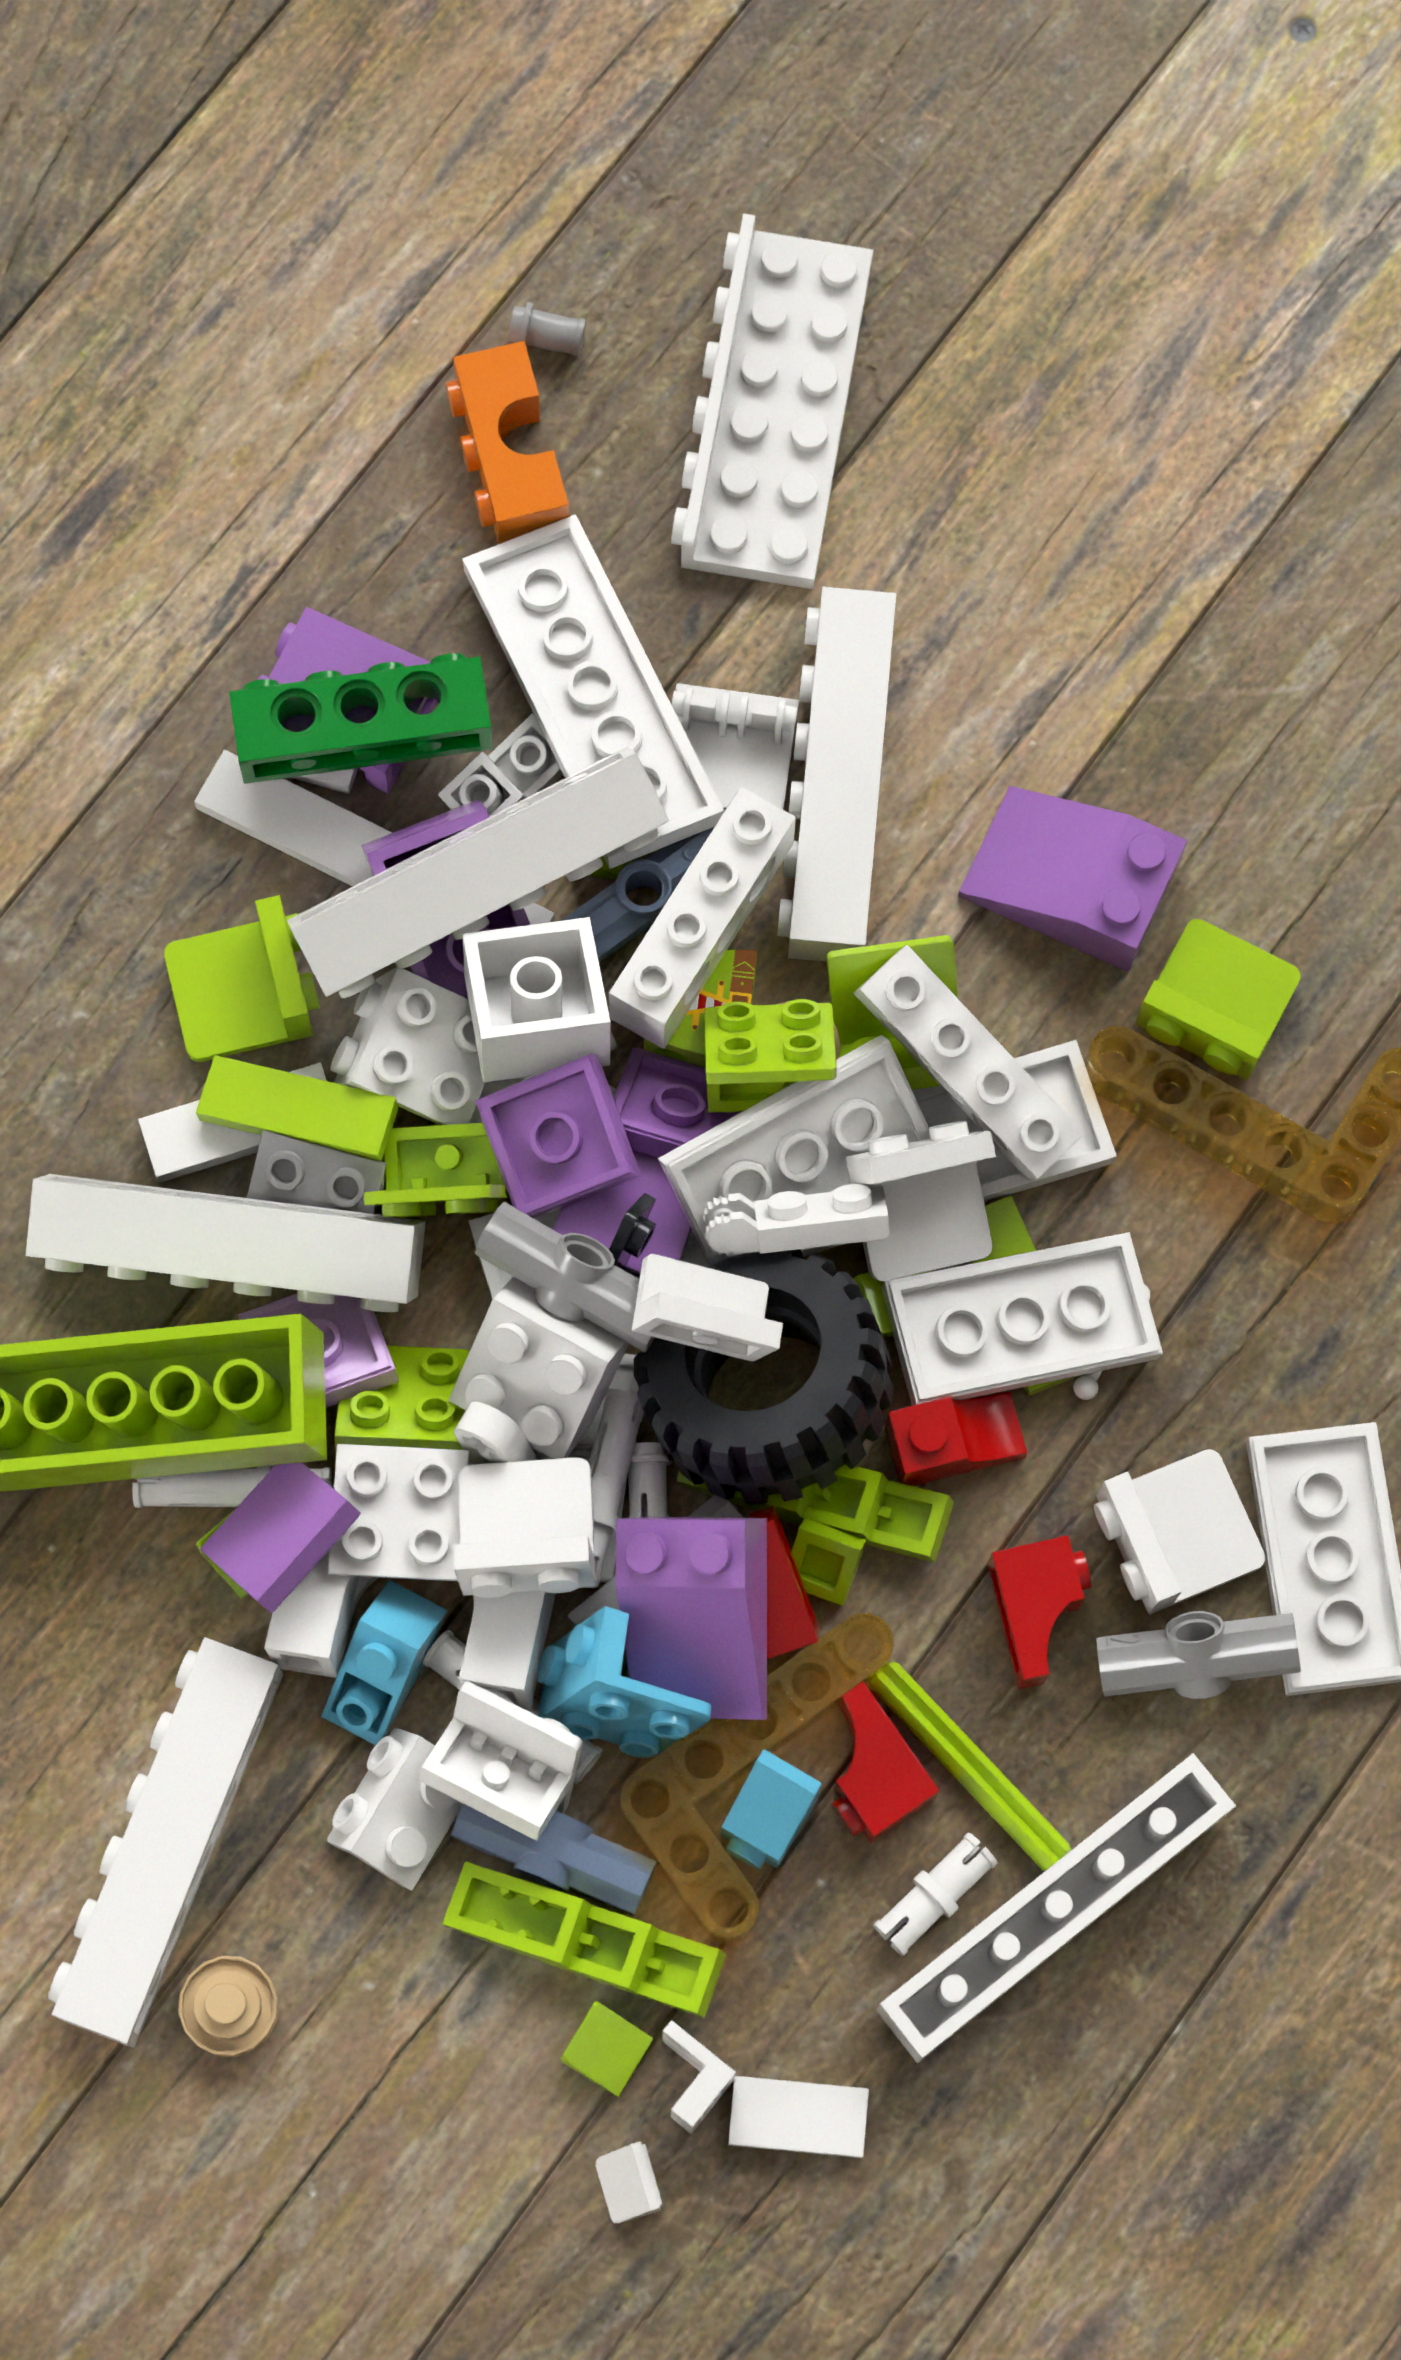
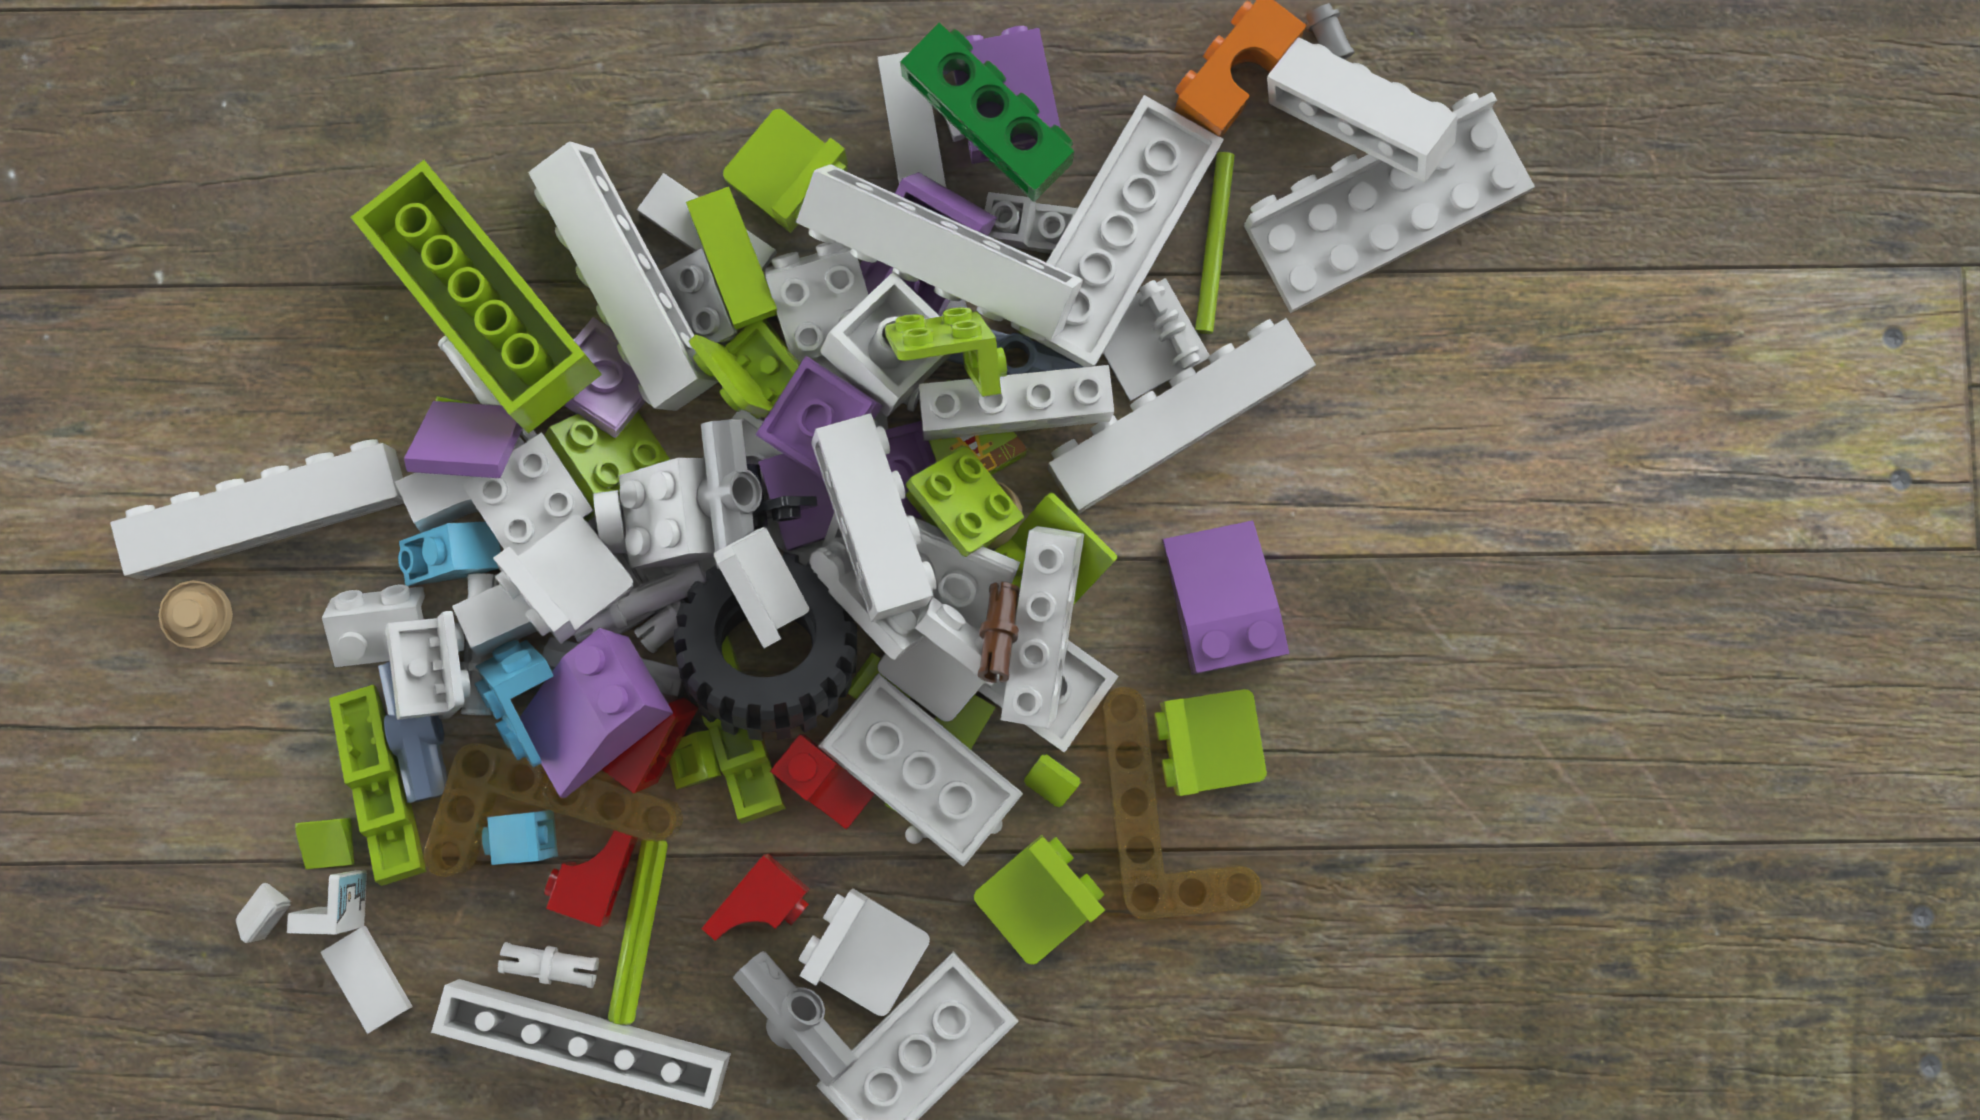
camera: 55 degrees right, 10 degrees up
(616, 898) = (952, 333): none -> lime bracket
(659, 350) = (1362, 108): none -> white brick
(678, 607) = (1214, 243): none -> lime bar
(720, 1138) = (872, 517): none -> white brick
(945, 1102) = (998, 632): none -> reddish brown pin
(1136, 1193) = (1052, 780): none -> lime slope
(1257, 1296) = (1039, 899): none -> lime bracket

